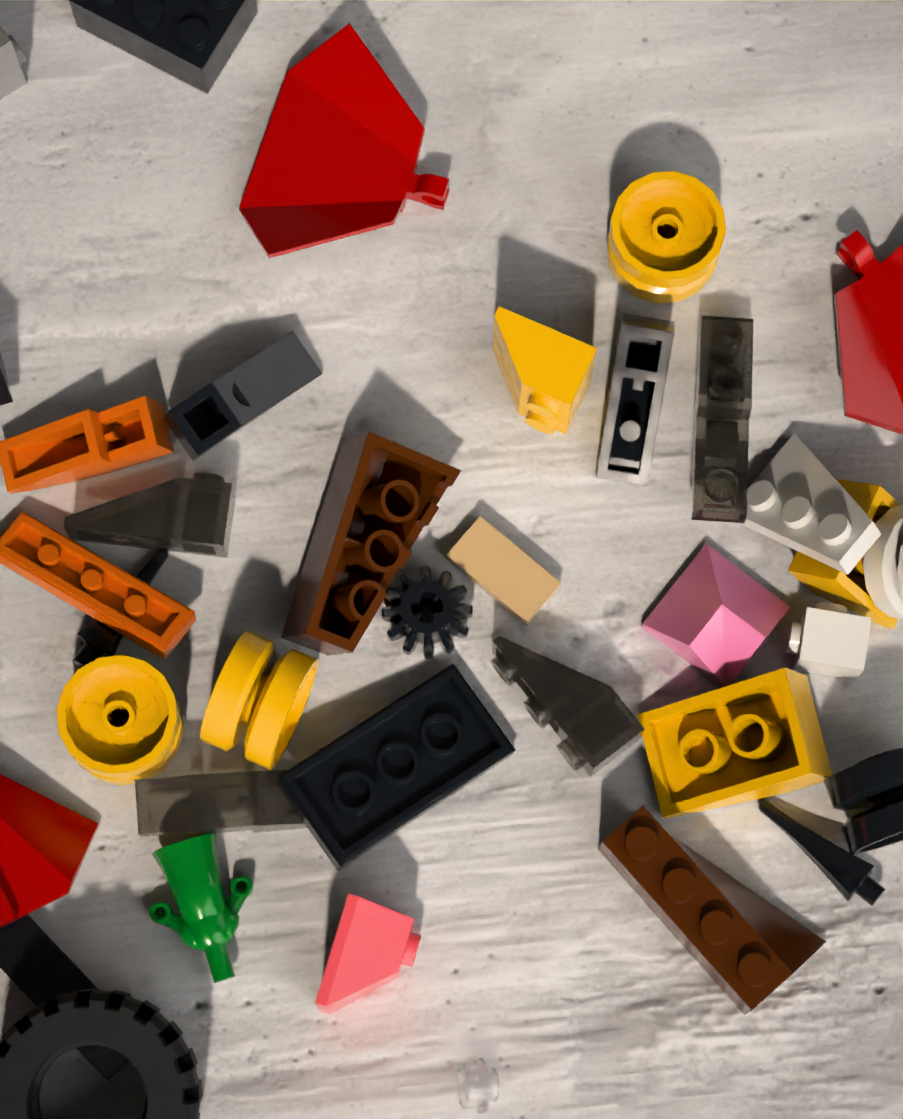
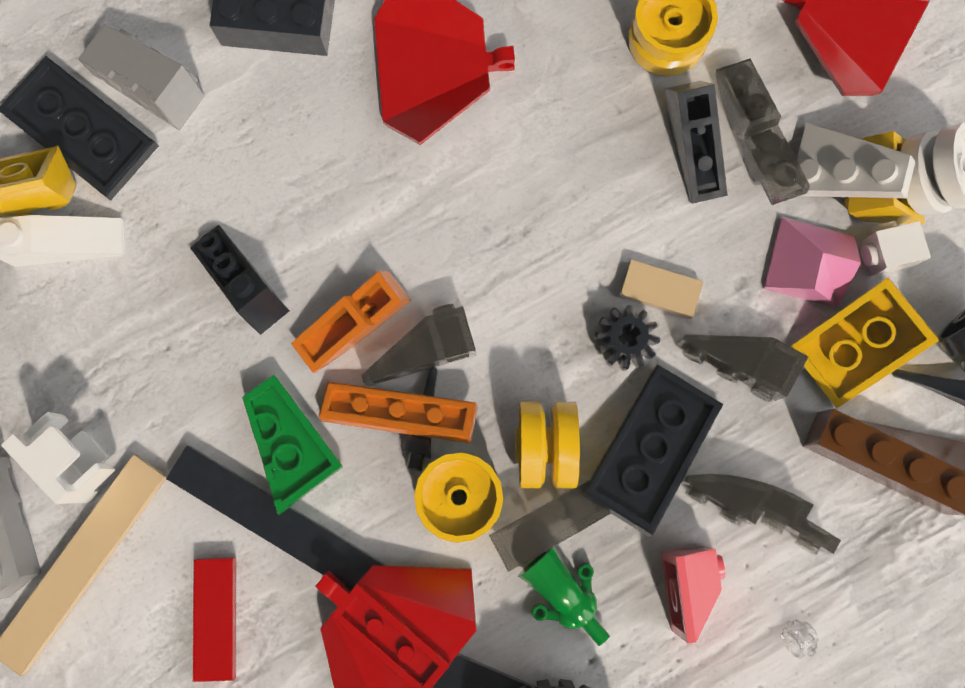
camera: 20 degrees left, 5 degrees up
(241, 395) = (440, 246): black slope -> none
(362, 538) = (564, 307): reddish brown wedge -> none
(486, 878) = (748, 499): none -> clear smoke slope
(542, 370) = (633, 145): yellow slope -> none

